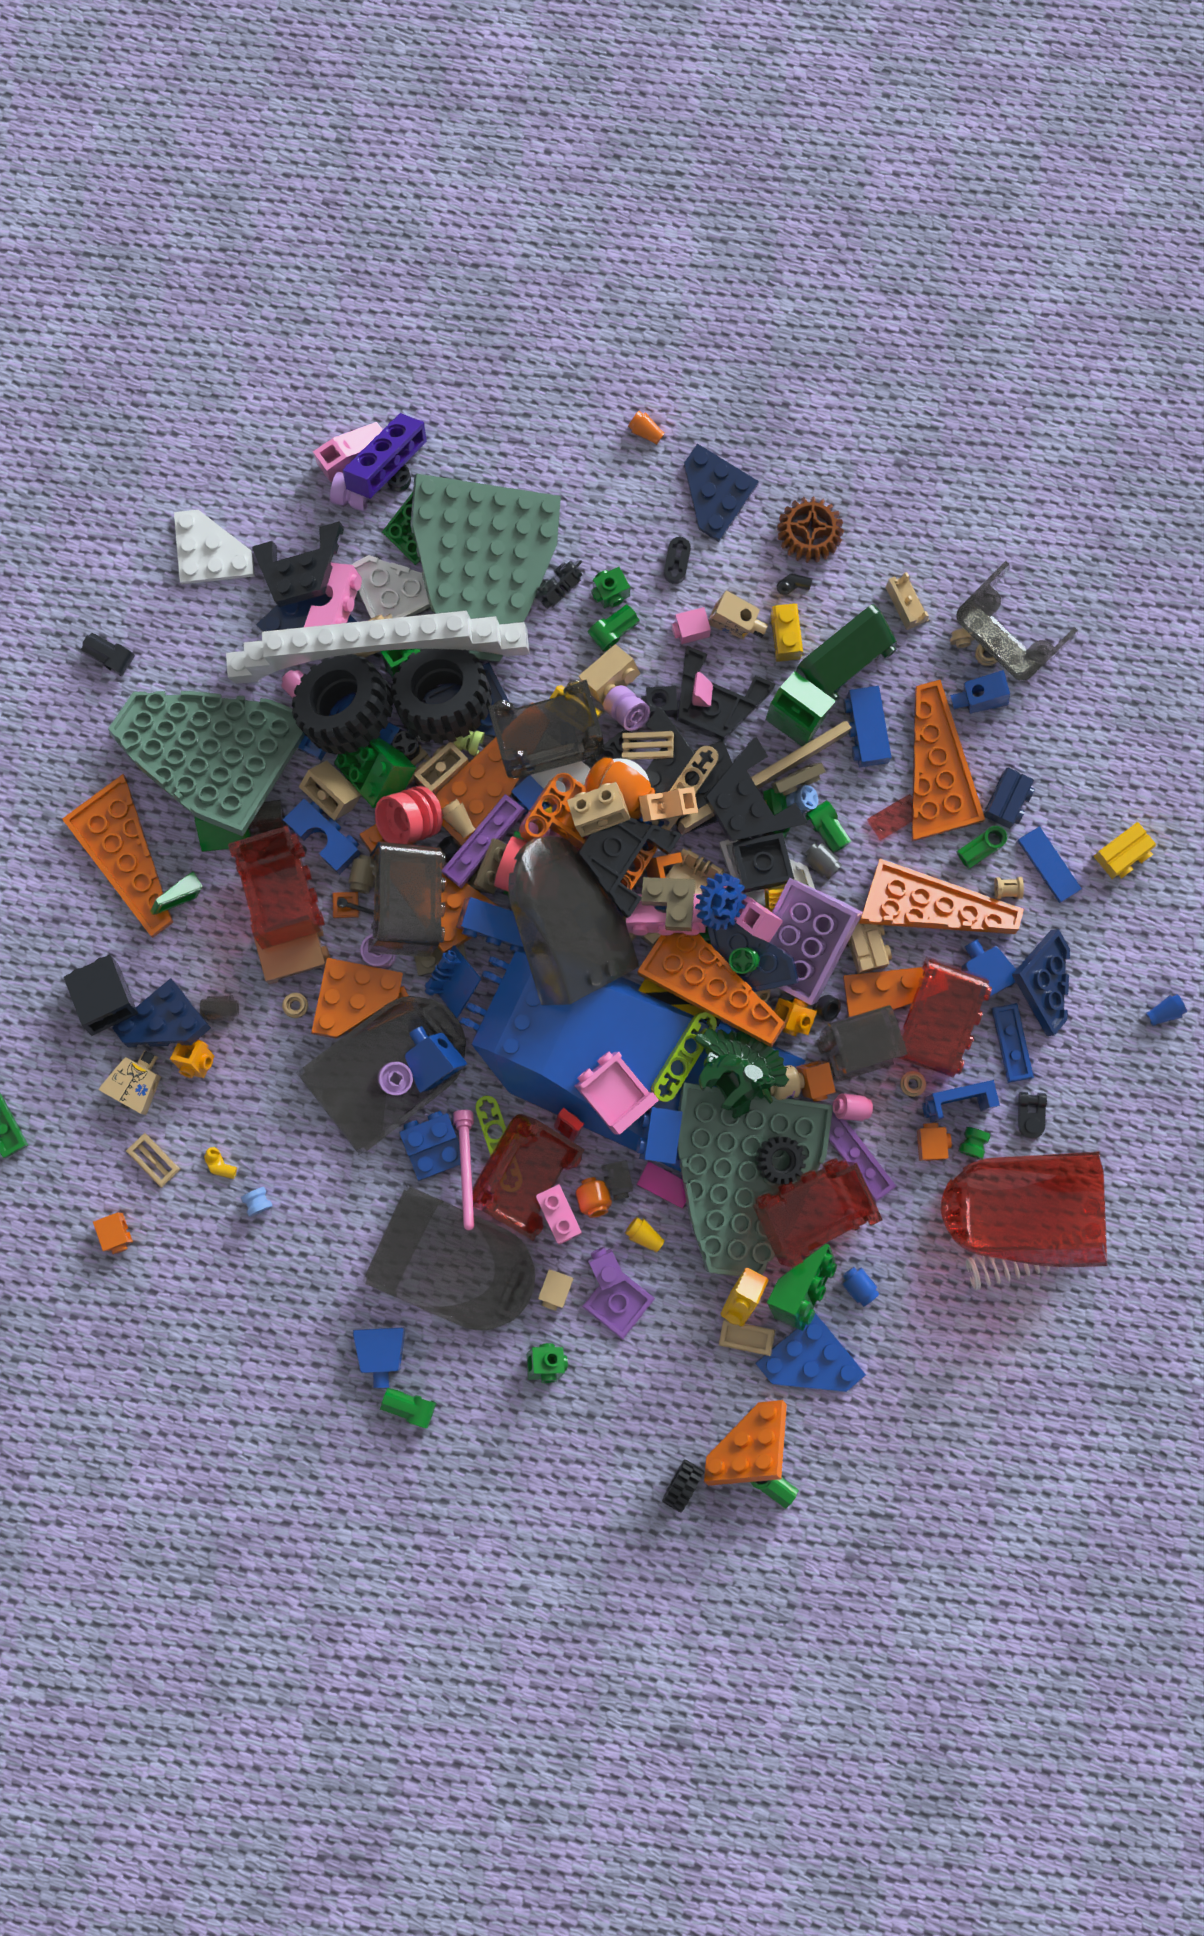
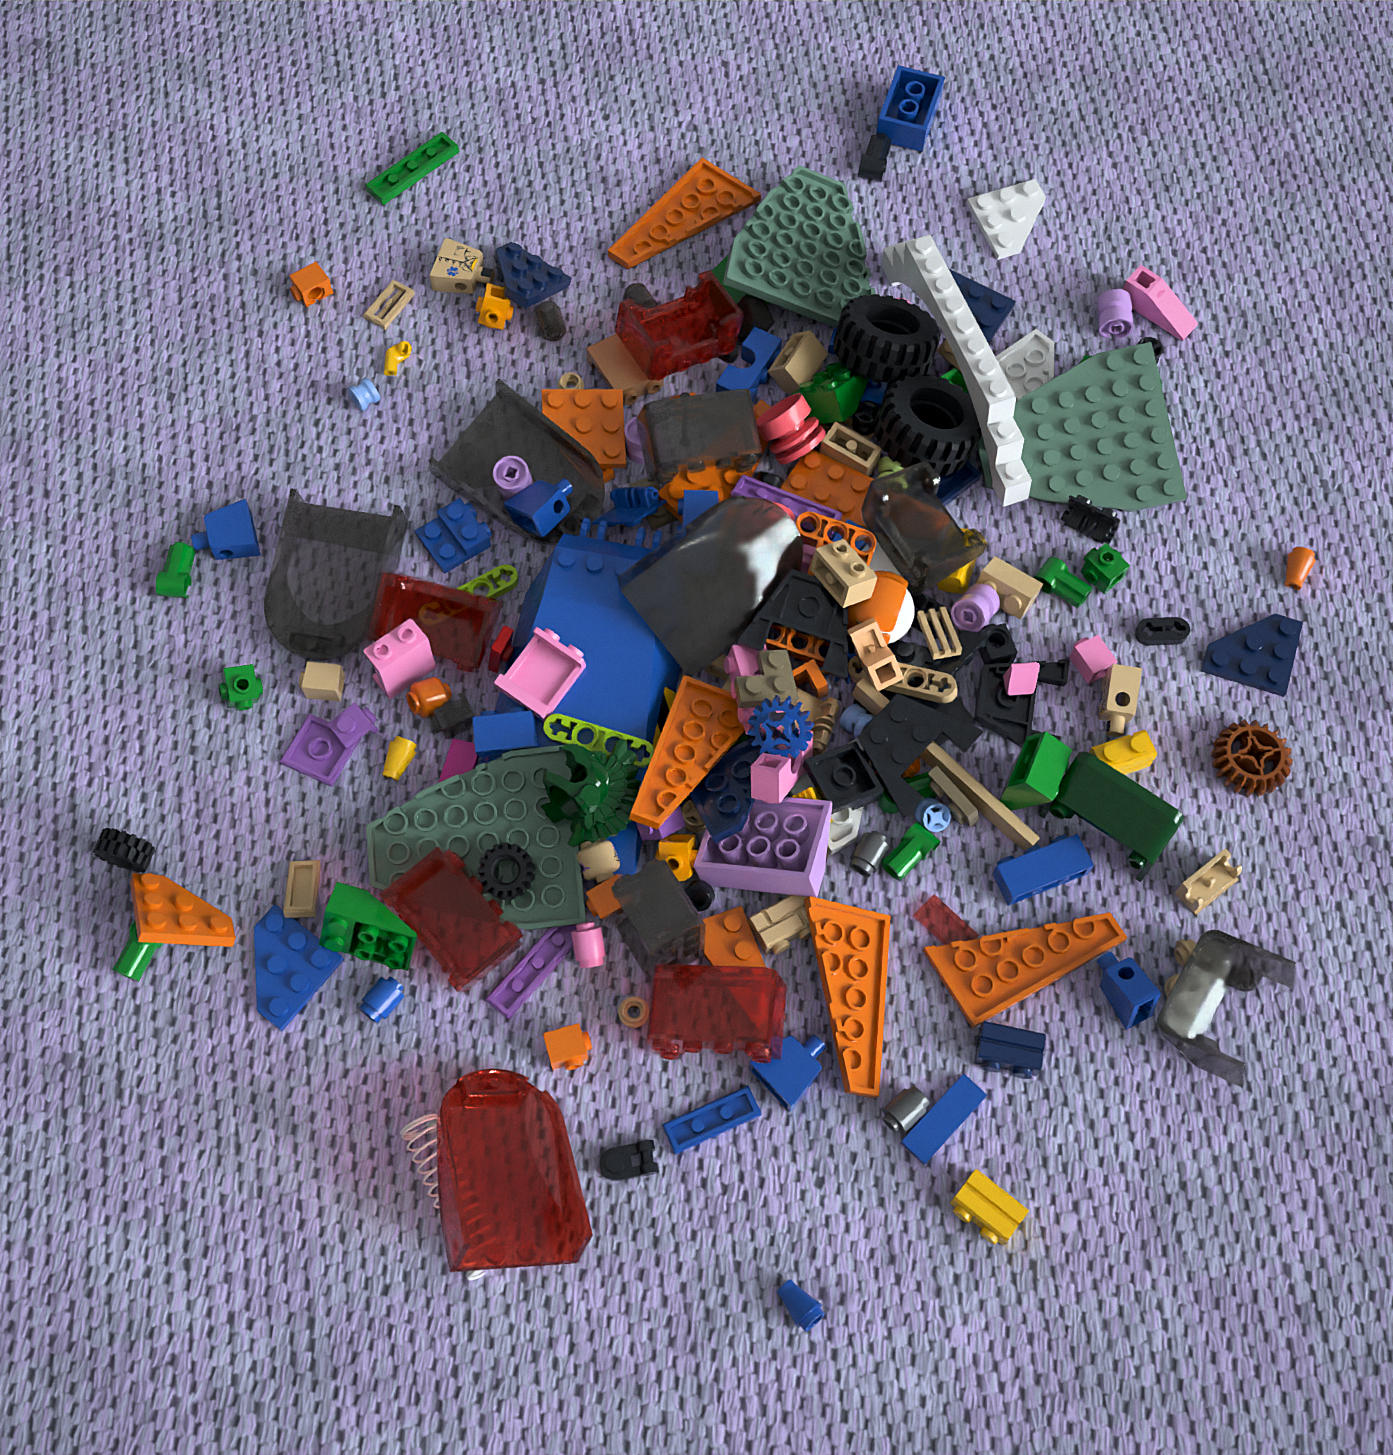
camera: 75 degrees right, 15 degrees down
(60, 603) = (910, 107): none -> blue brick
(100, 995) = (538, 220): black brick -> none
(182, 892) = (653, 258): slope -> none
(219, 918) = (640, 294): none -> clear smoke brick
(300, 575) = (1010, 285): black wing -> none
(342, 587) = (1011, 323): bright pink arch -> none
(384, 455) = (1162, 326): dark purple brick -> none
(458, 818) = (803, 473): tan cone -> none
(463, 1120) = (484, 557): bright pink piece -> none
(706, 835) = (855, 719): none -> light blue wheel
(740, 963) = (722, 774): green wheel -> none
(744, 1297) = (342, 865): yellow brick -> none
(792, 582) = (1183, 754): black arm -> none
(974, 1143) = (575, 1095): green wheel -> none
(981, 847) = (938, 1028): green piece -> none
(984, 1091) = (640, 1087): blue panel -> none
(1008, 888) = (899, 1072): tan bush -> none
(1039, 891) = (905, 1109): none -> dark grey brick
(1045, 982) = (795, 1139): dark blue plate -> none

